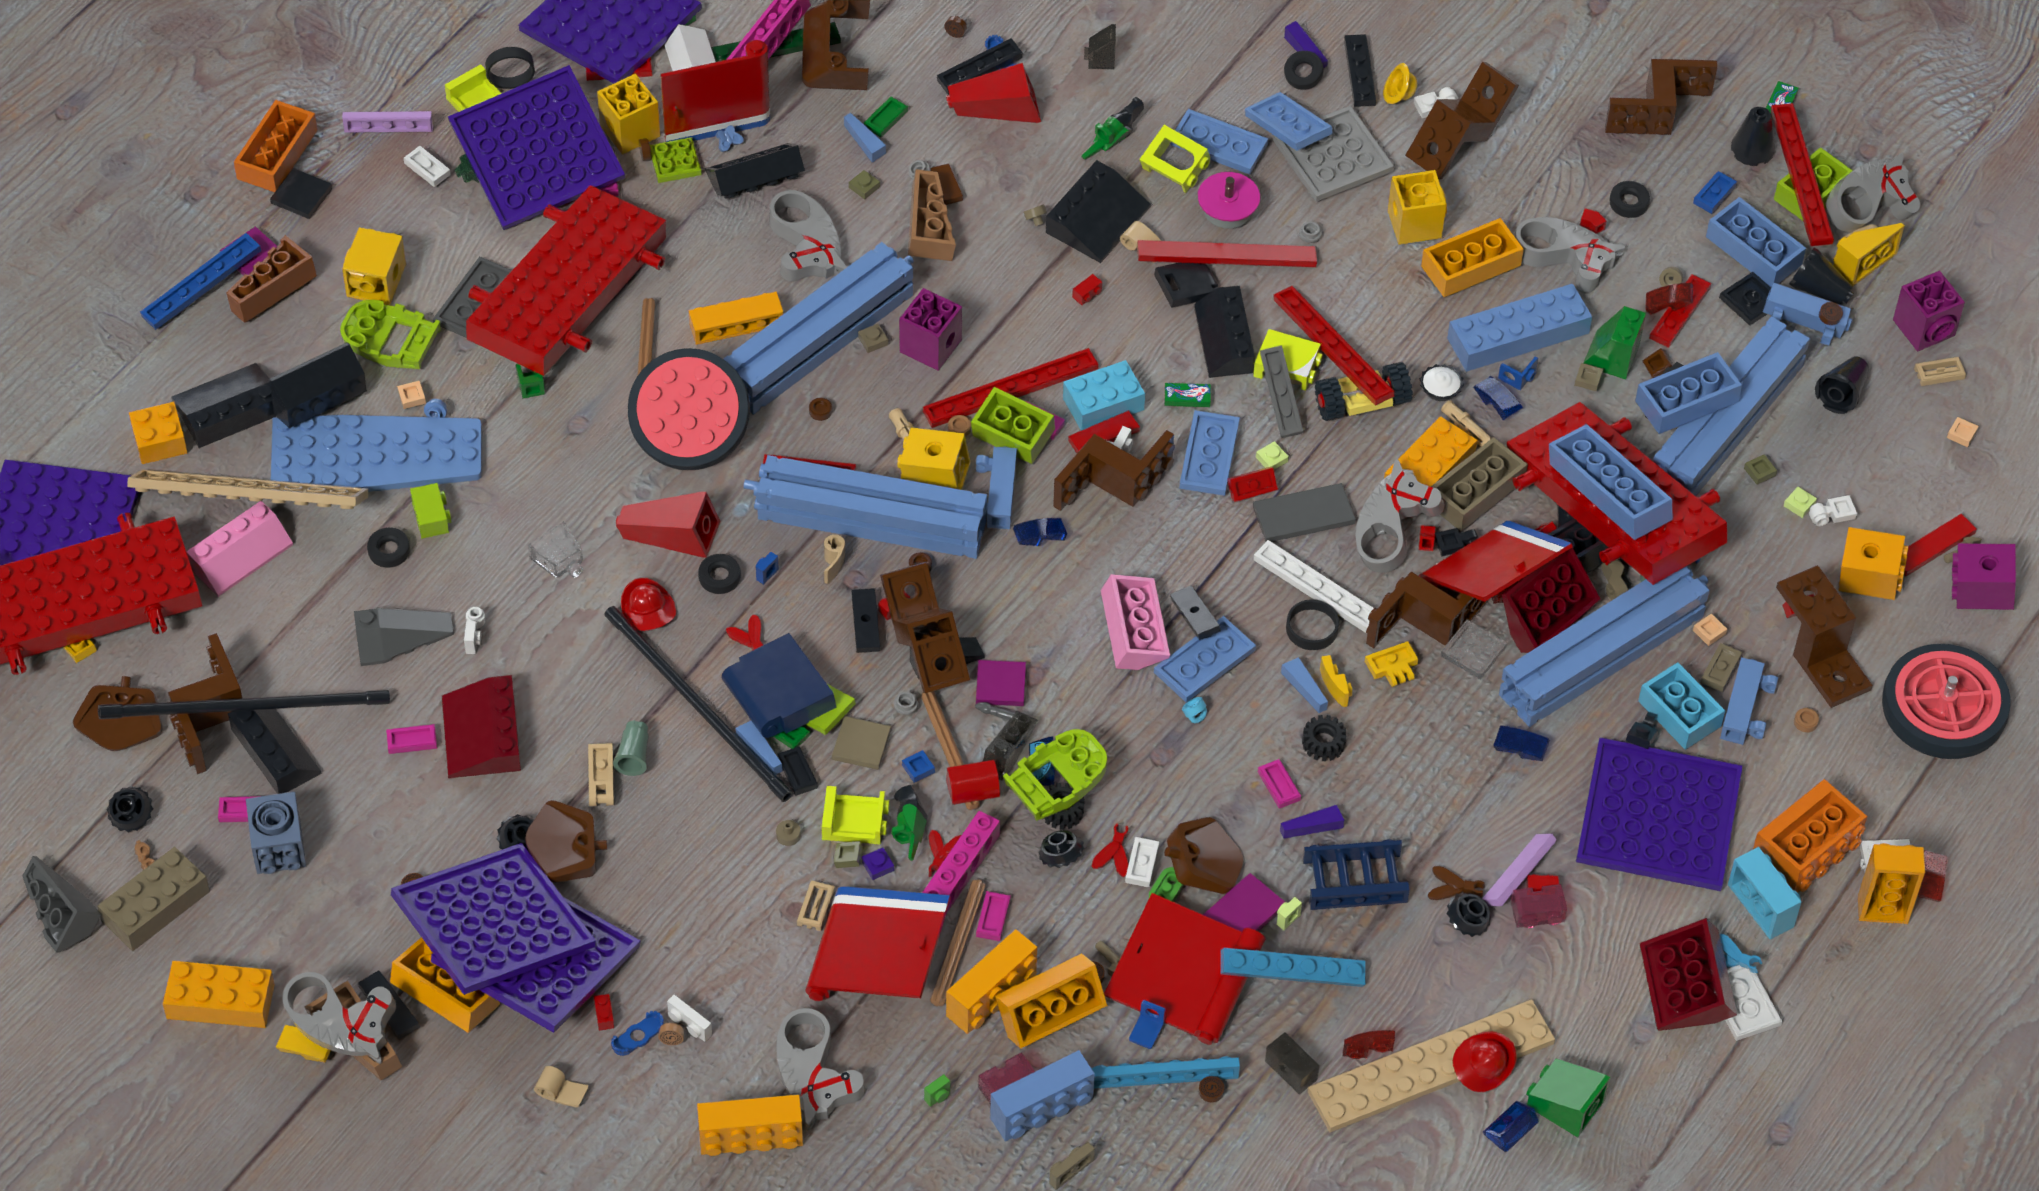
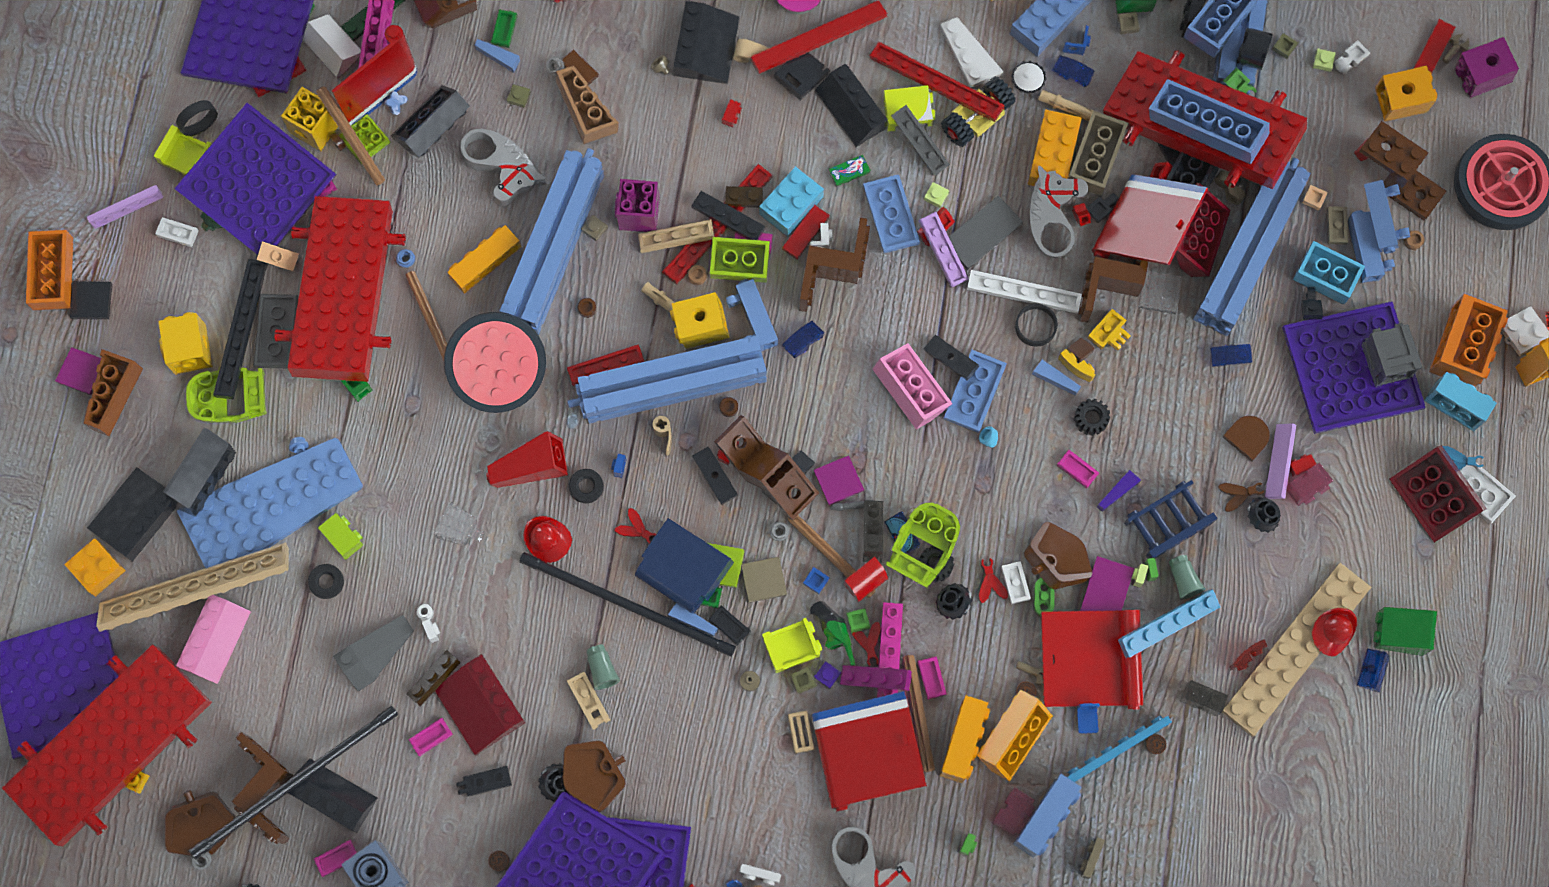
camera: 25 degrees left, 20 degrees up
(97, 742) = (202, 864): none -> light grey plate
(200, 281) = (55, 417): blue plate -> none
(411, 394) = (272, 440): light nougat plate -> none
(439, 277) = (240, 329): none -> black tile
(443, 805) = (485, 781): none -> black hinge
(446, 682) = (433, 678): none -> dark brown plate
(518, 228) = (277, 256): none -> light nougat plate
(652, 285) = (405, 253): none -> medium blue plate
(660, 141) = (350, 135): none -> medium nougat axle
(926, 876) = (876, 677): none -> magenta plate
(943, 825) = (858, 620): none -> bright green tile
(955, 378) = (676, 236): none -> tan tile
(1023, 380) = (728, 216): none -> black plate
(1052, 369) = (744, 196): none -> dark brown plate
(1247, 507) = (943, 249): none -> lavender tile
(1305, 913) = (1152, 572): none -> bright green tile
(1340, 935) = (1185, 577): none -> sand green plant
(1352, 669) = (1081, 349): none -> reddish brown slope
(1388, 335) = (970, 55): none -> white wing
(1496, 832) = (1248, 436): none -> reddish brown tile
(1674, 466) = (1239, 81): none -> bright green plate
(1704, 808) = (1391, 354): none -> dark grey container
(1708, 438) = (1254, 48): none -> black brick
(1773, 668) = (1381, 216): none -> medium blue brick

